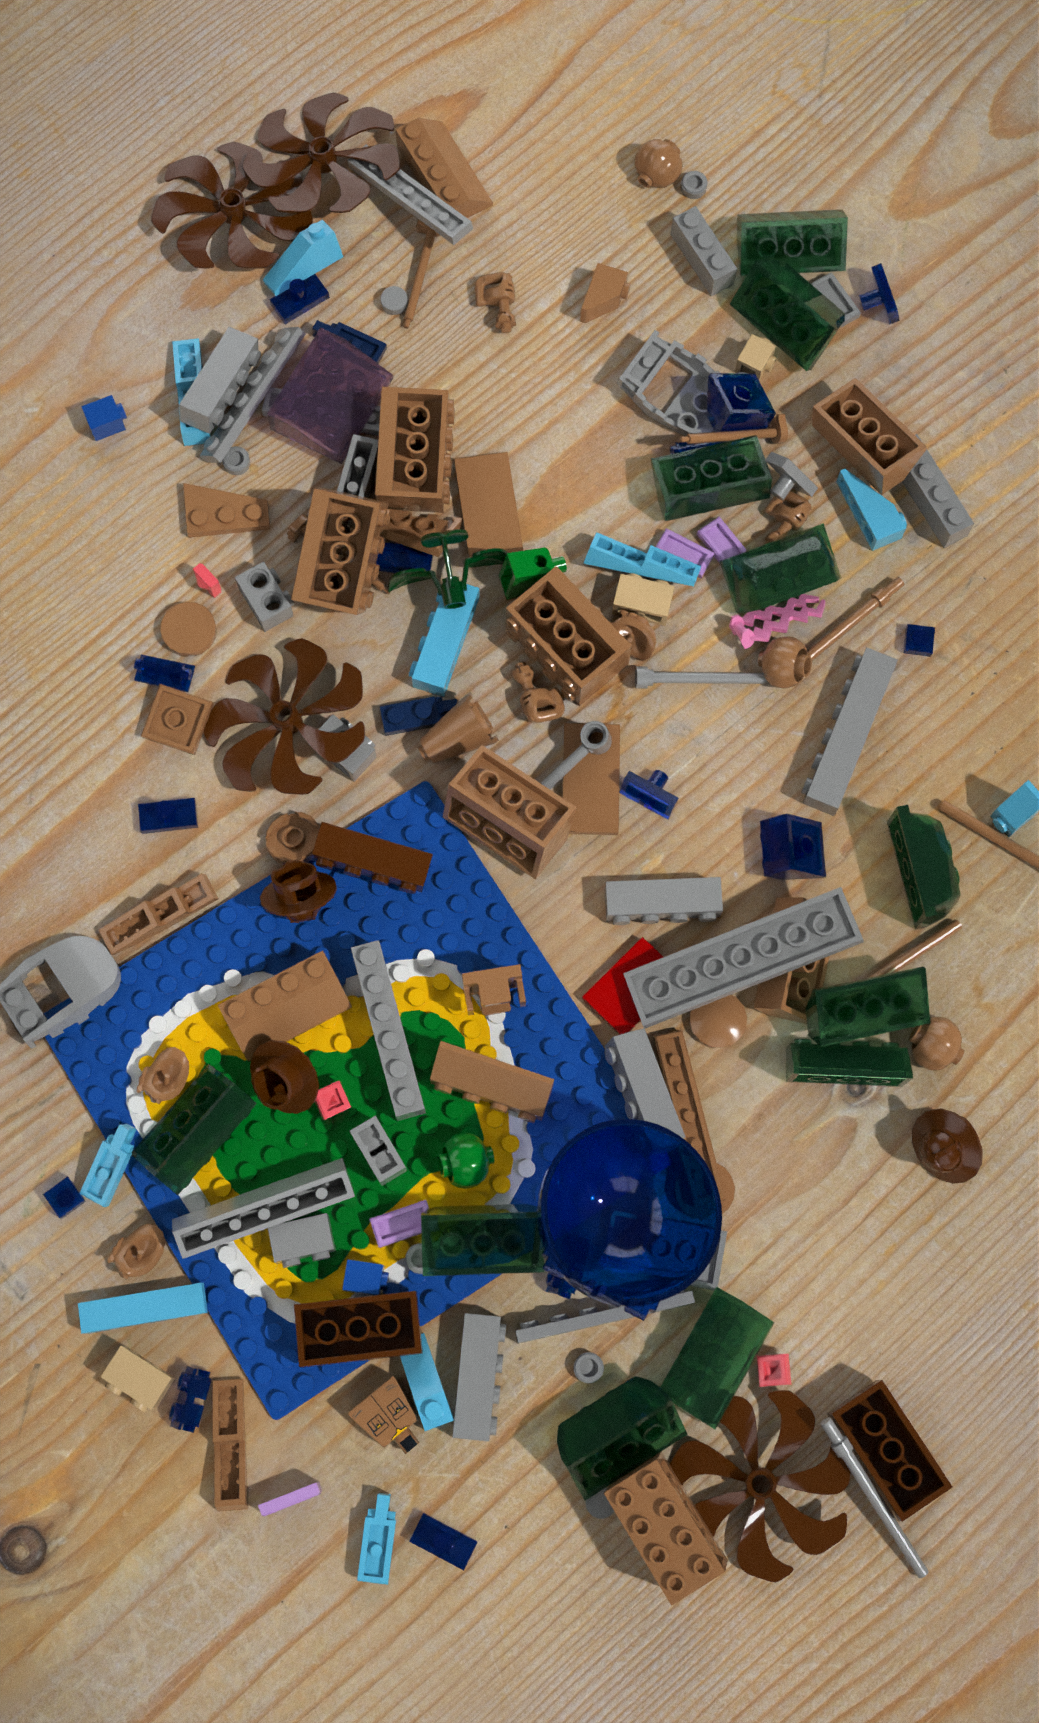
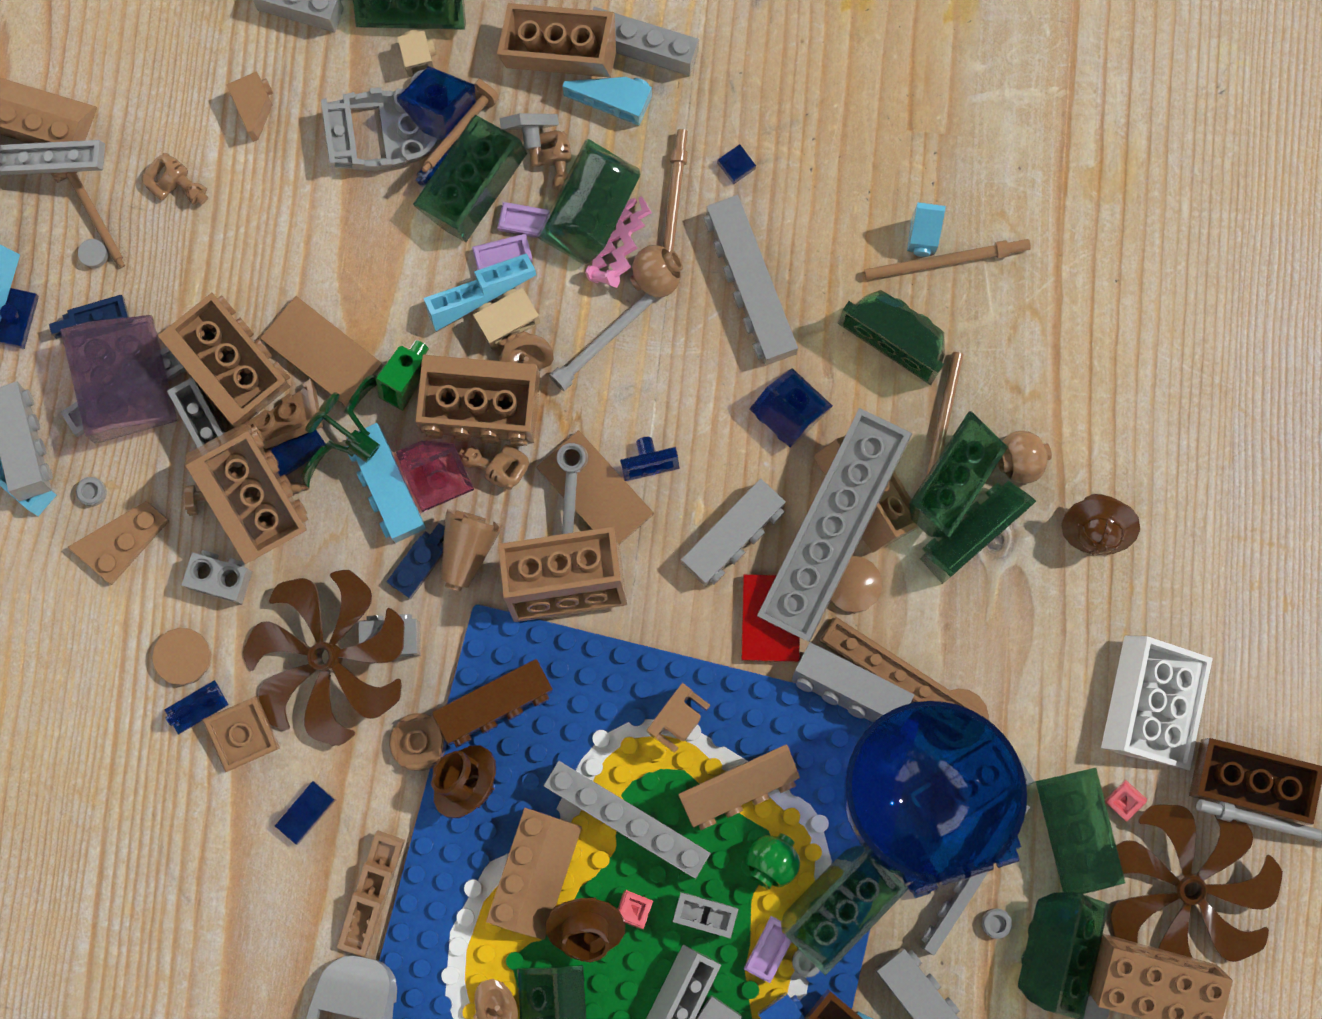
camera: 40 degrees left, 5 degrees up
(207, 580) = (160, 607): coral tile -> none
(249, 399) = (54, 428): light grey plate -> none
(486, 661) = (434, 472): none -> clear pink slope
(868, 1319) = (1157, 702): none -> white slope

